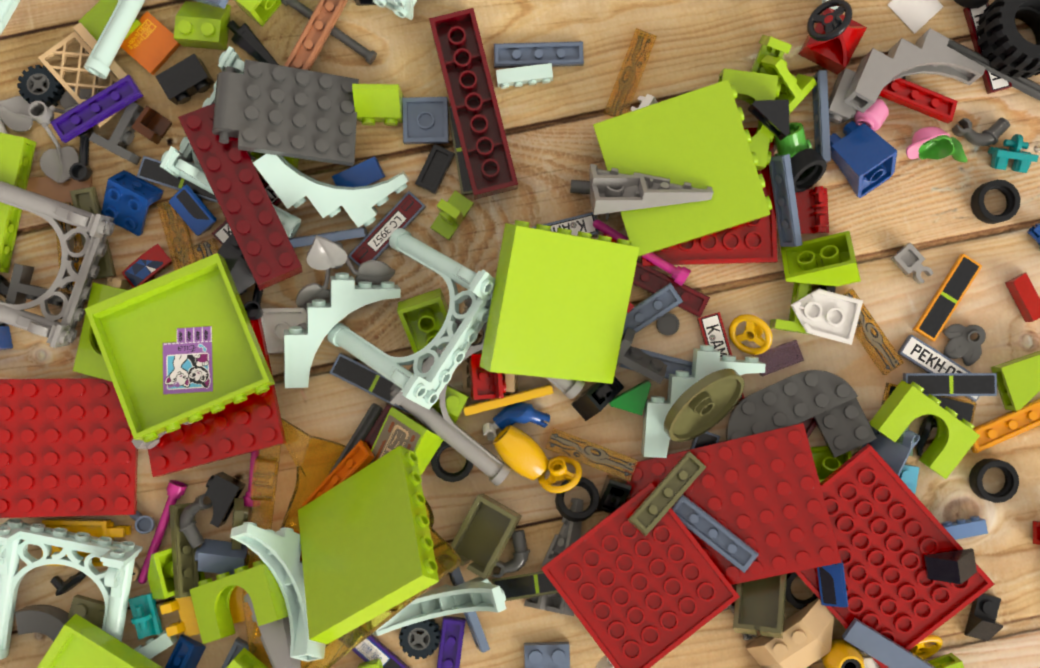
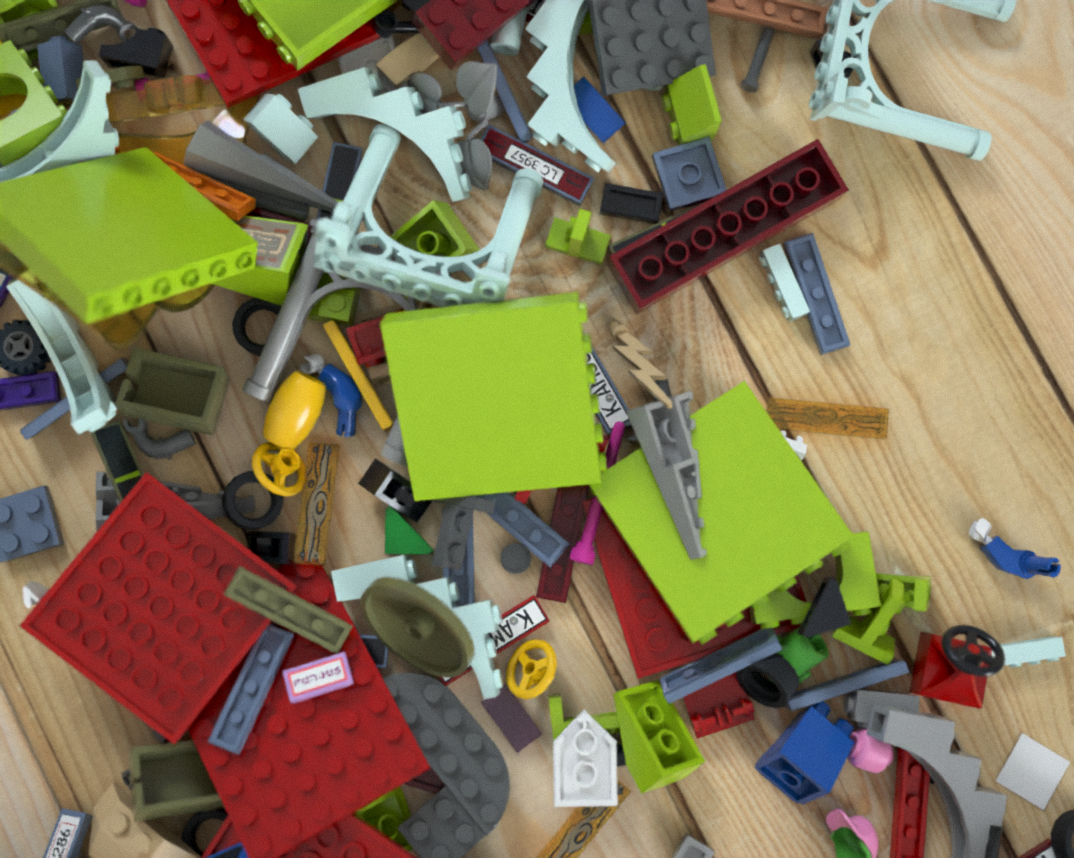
camera: 65 degrees right, 5 degrees down
(283, 302) = (407, 59): none -> tan slope
(309, 408) = (281, 127): none -> light aqua brick
(325, 450) = (228, 159): none -> light grey wedge
(547, 199) = (632, 353): none -> tan piece
(719, 484) = (318, 677): none -> tile

